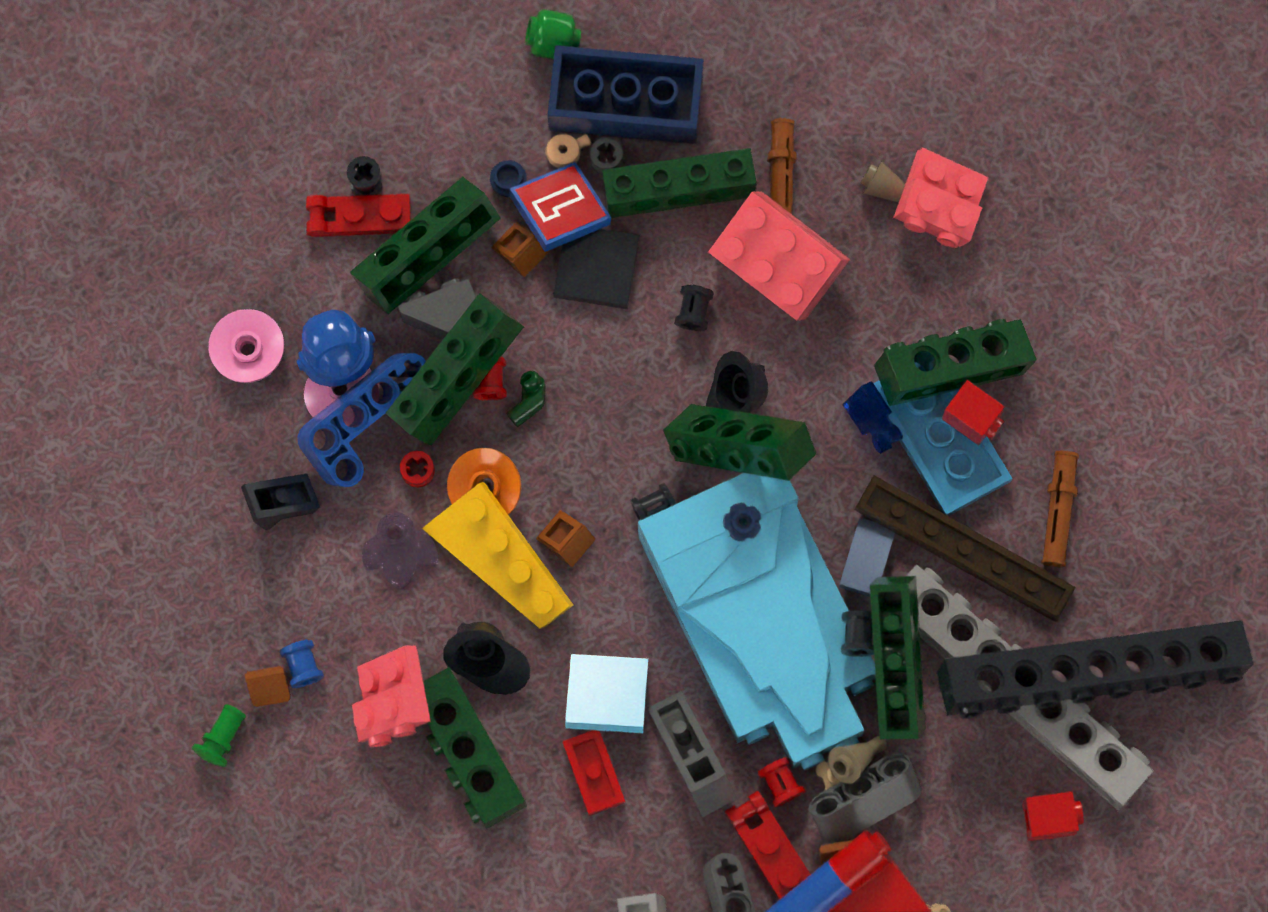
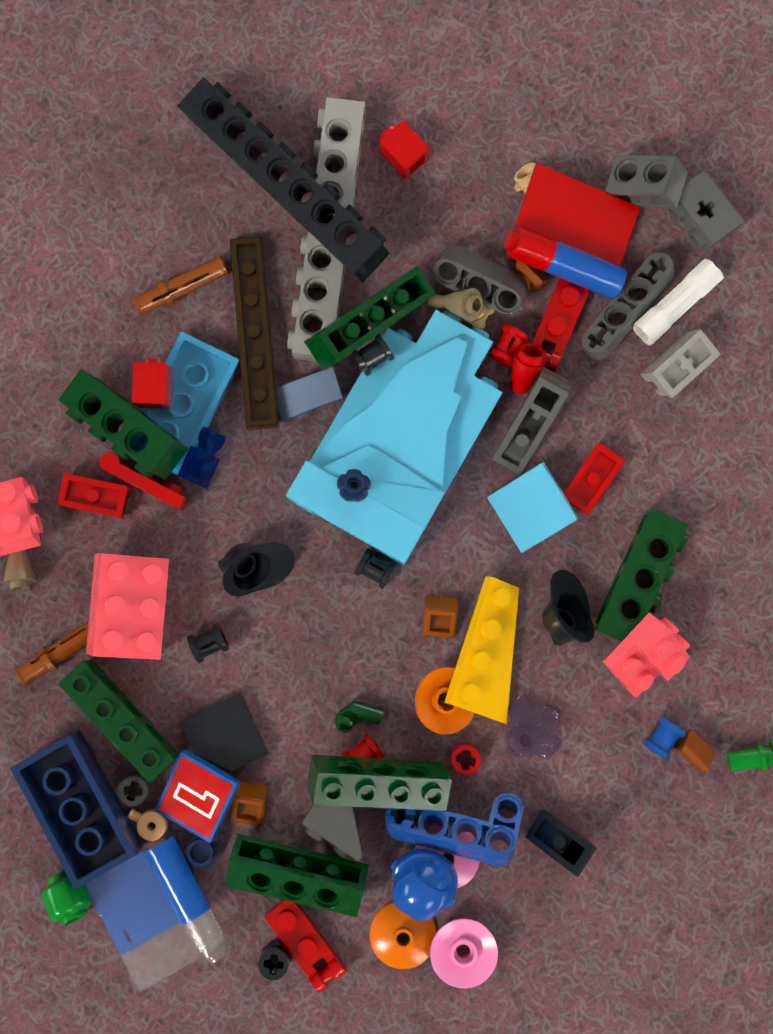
camera: 125 degrees left, 10 degrees up
(300, 283) = (384, 942): none -> orange dish
(480, 104) = (157, 914): none -> clear door
(740, 442) = (292, 531): dark green brick -> none
(748, 782) = (527, 365): none -> red cone
(861, 363) = (168, 493): none -> red plate
(907, 295) = (93, 496): none -> red plate

